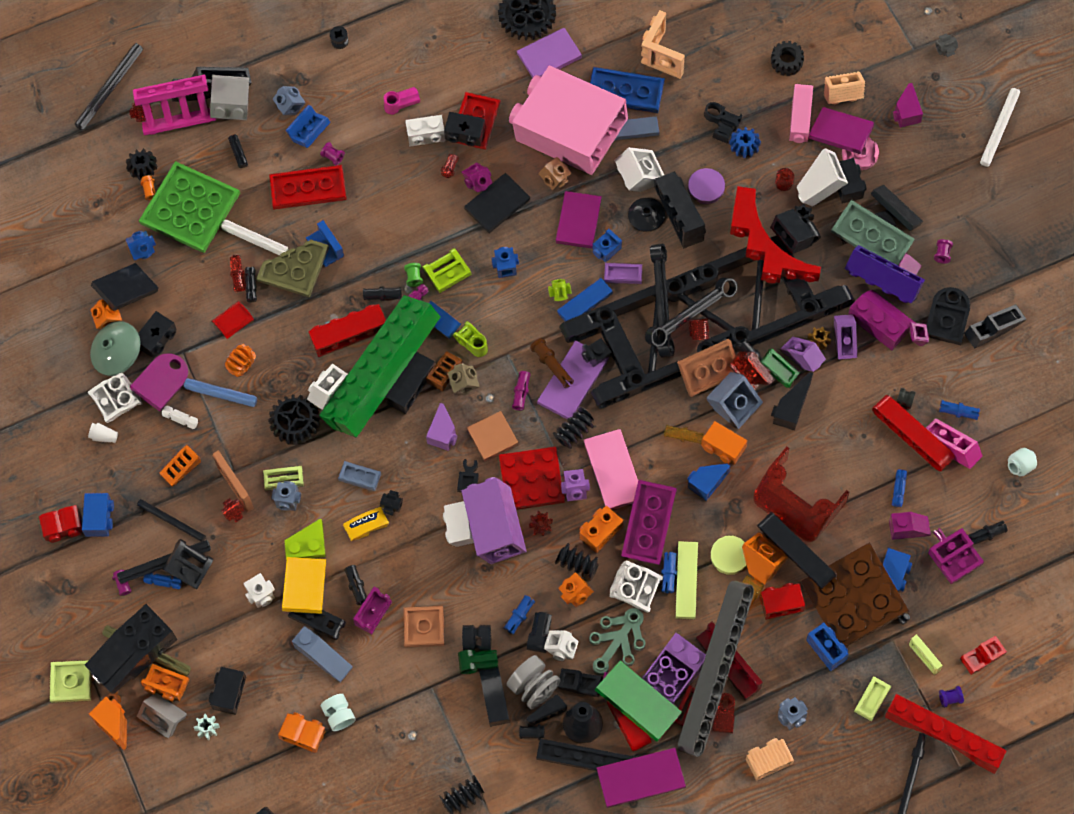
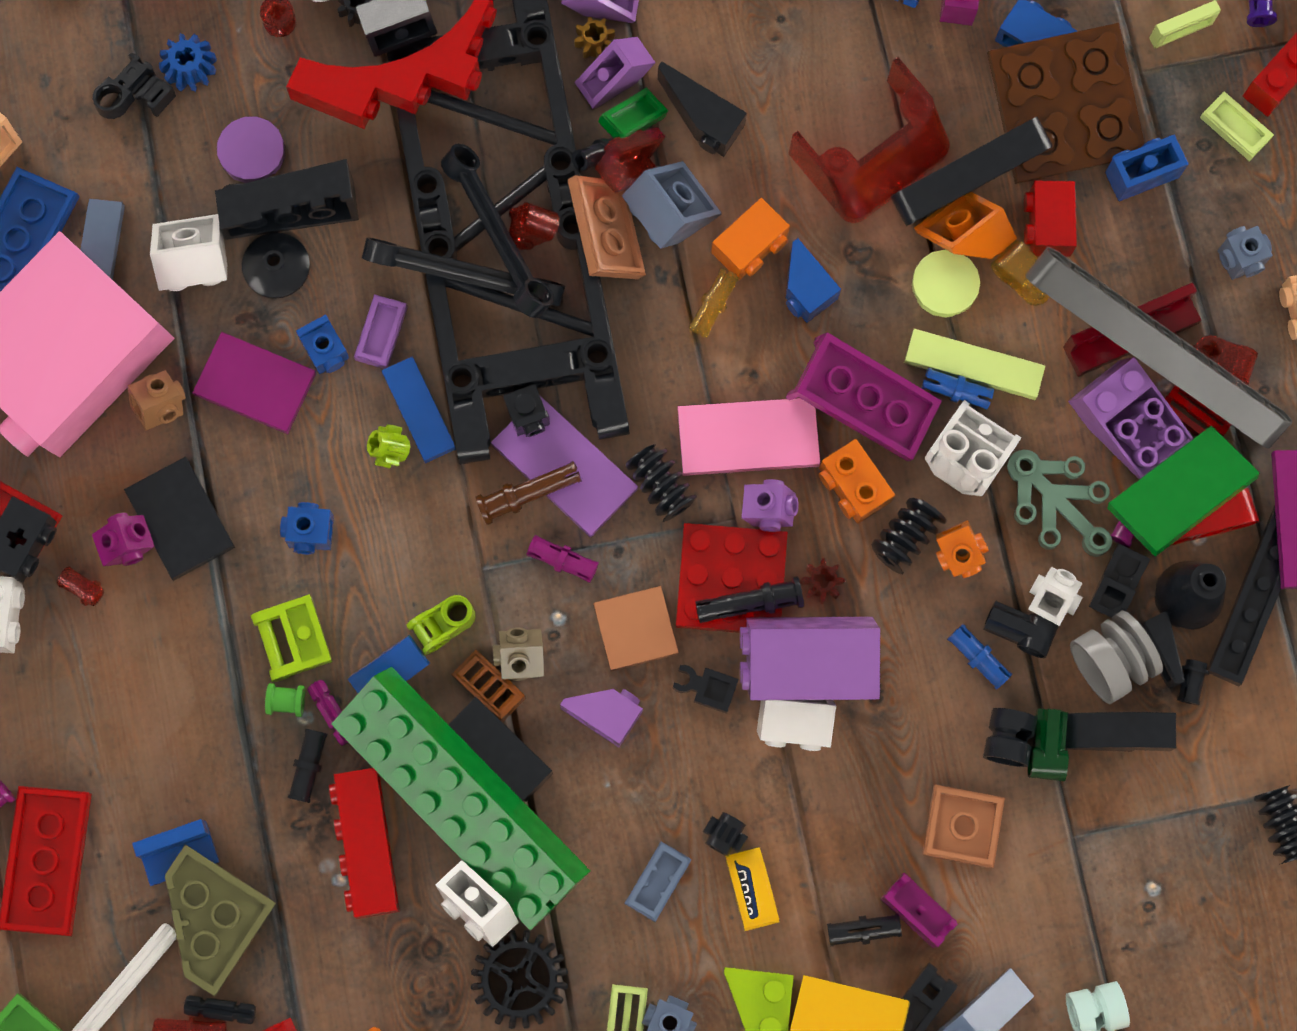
camera: 85 degrees left, 10 degrees up
(522, 492) = (766, 598): none -> black pin

